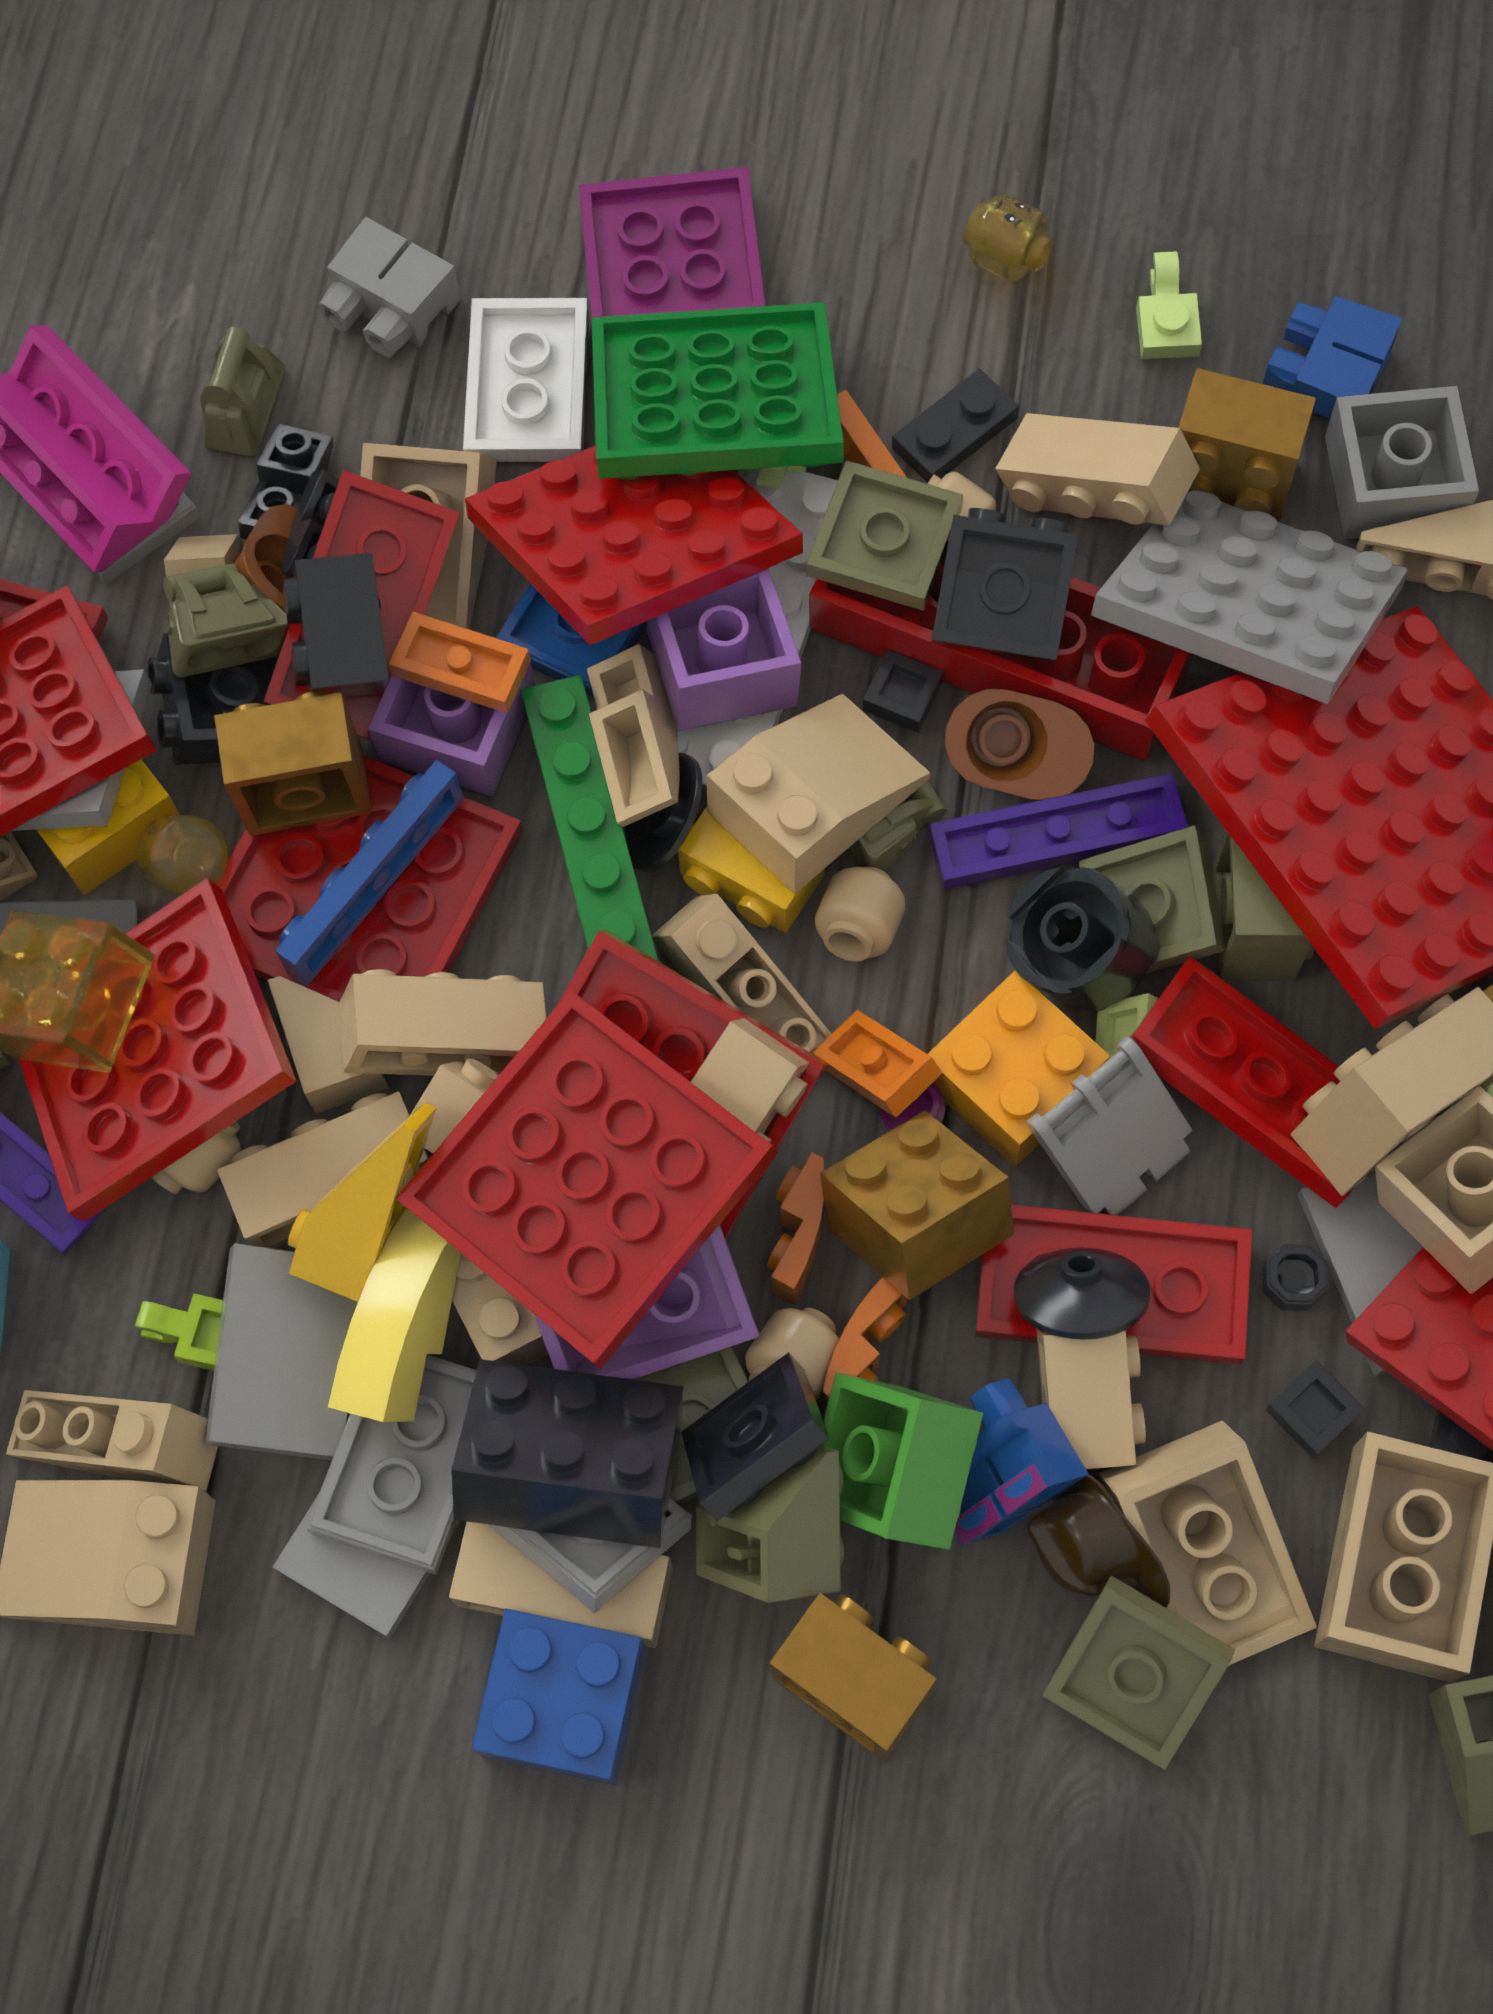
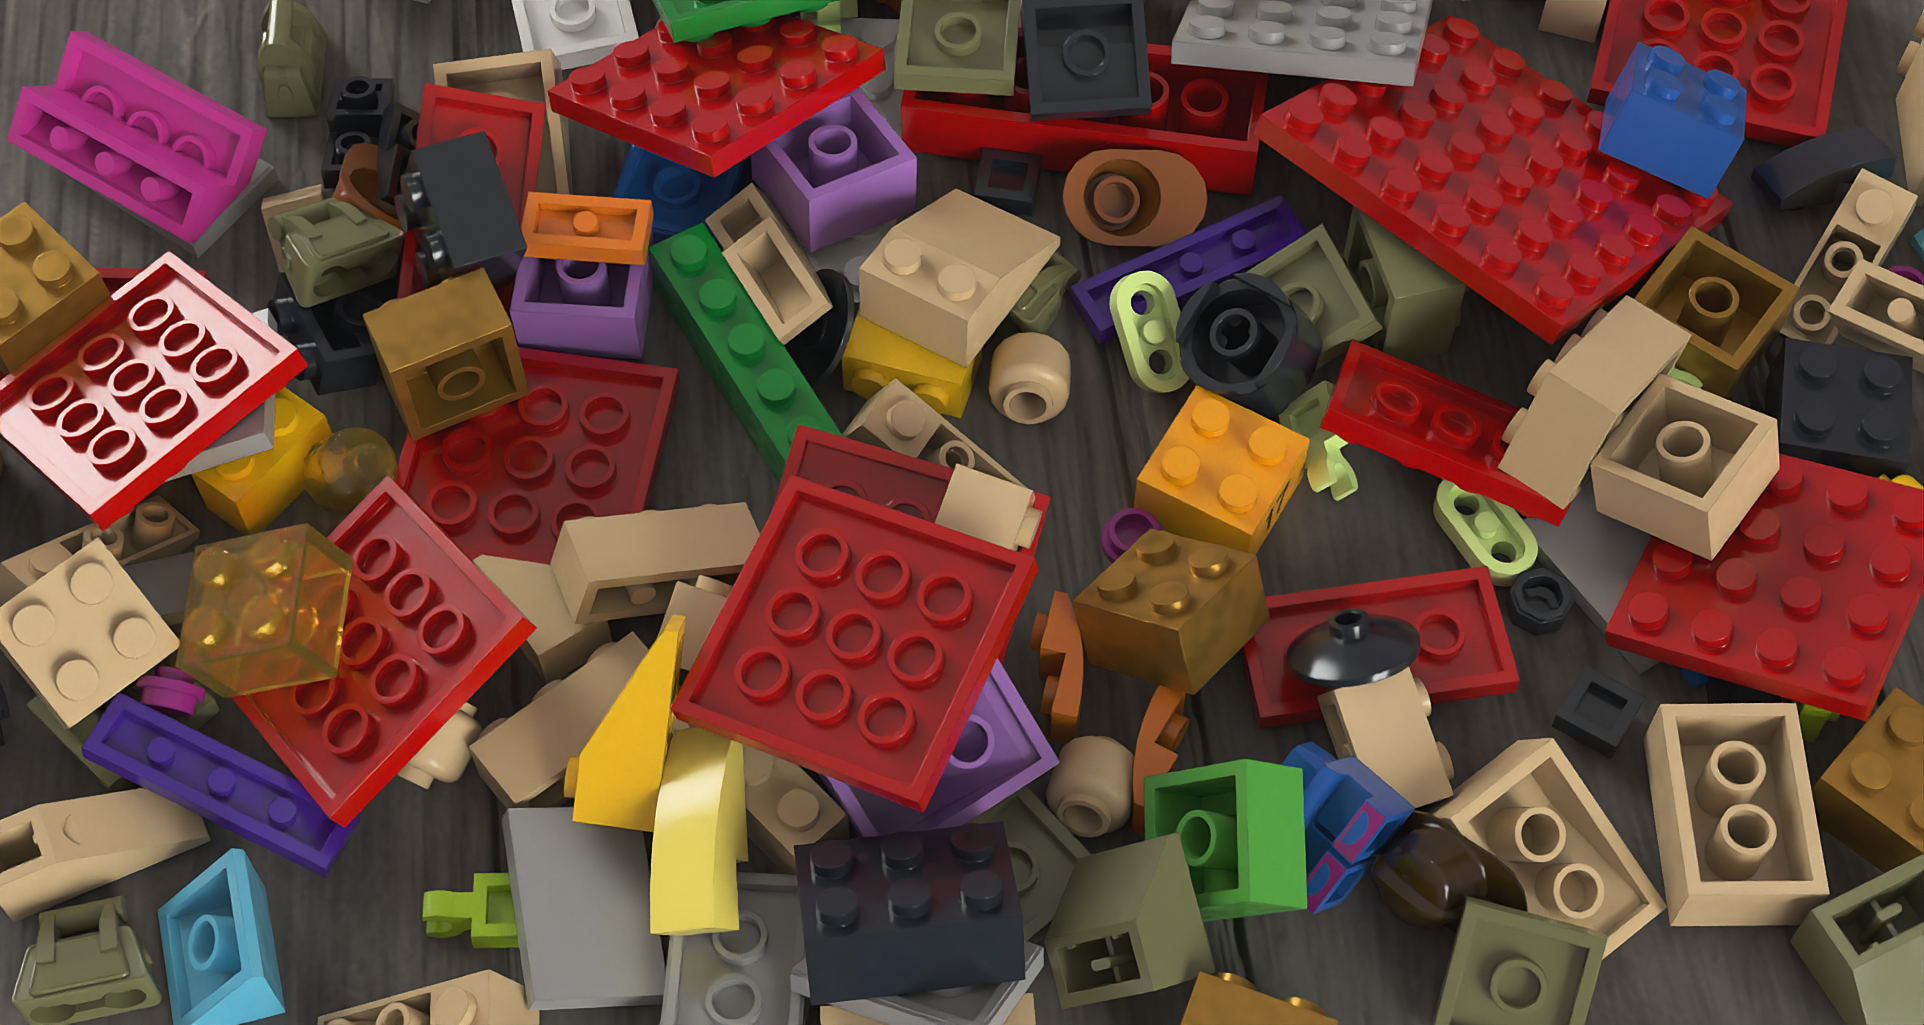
camera: 20 degrees left, 10 degrees down
(383, 856) = (555, 424): blue plate -> none
(754, 1437) = (1088, 848): black plate -> none
(877, 1063) = (1095, 500): orange plate -> none
(989, 892) = (1148, 332): none -> yellowish green plate
(1114, 1131) = (1333, 505): light grey plate -> none
(1265, 1190) = (1486, 532): none -> yellowish green plate

